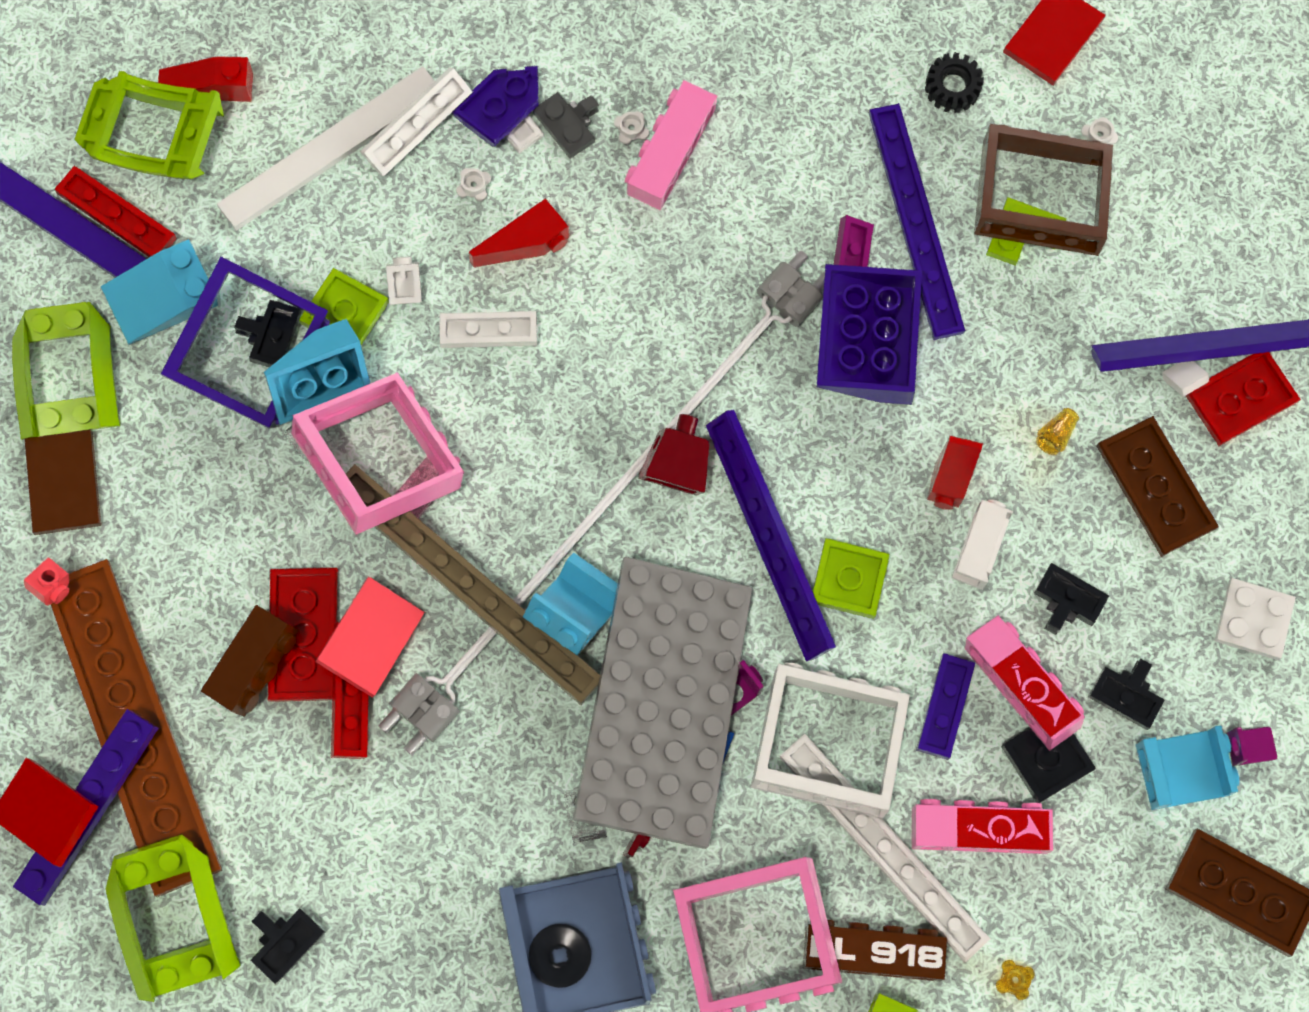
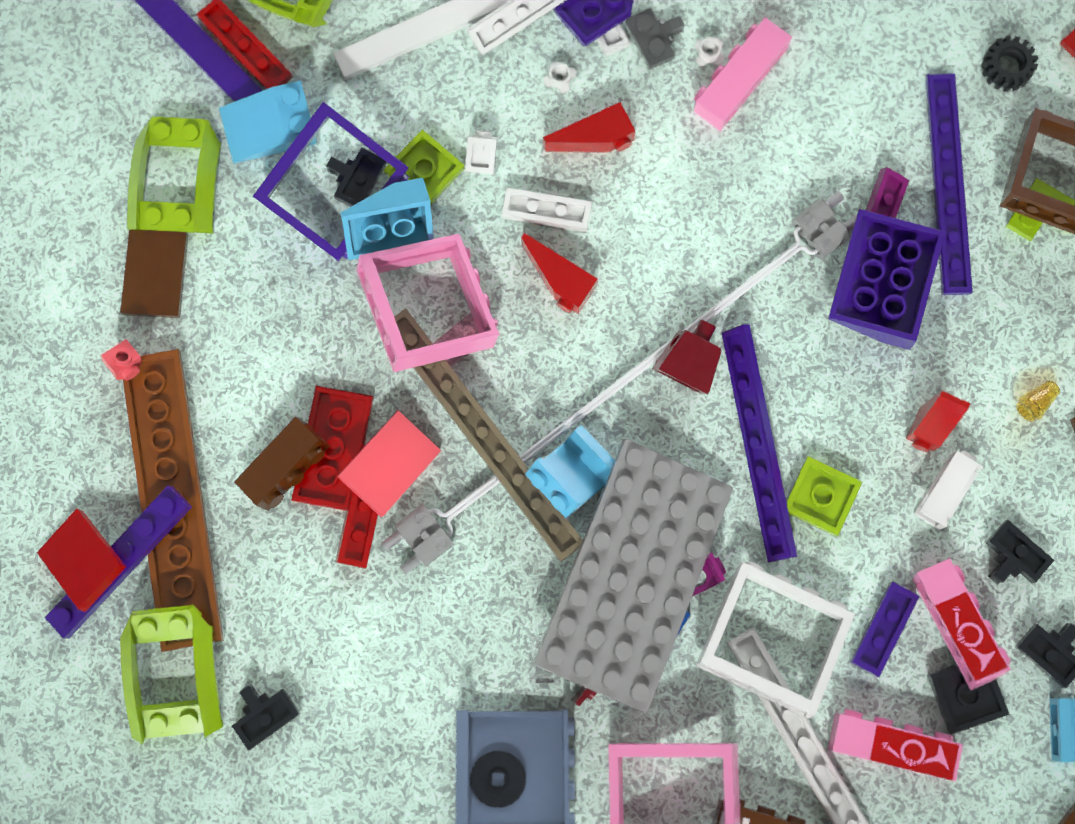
camera: 20 degrees right, 5 degrees up
(522, 400) = (564, 279): none -> red slope

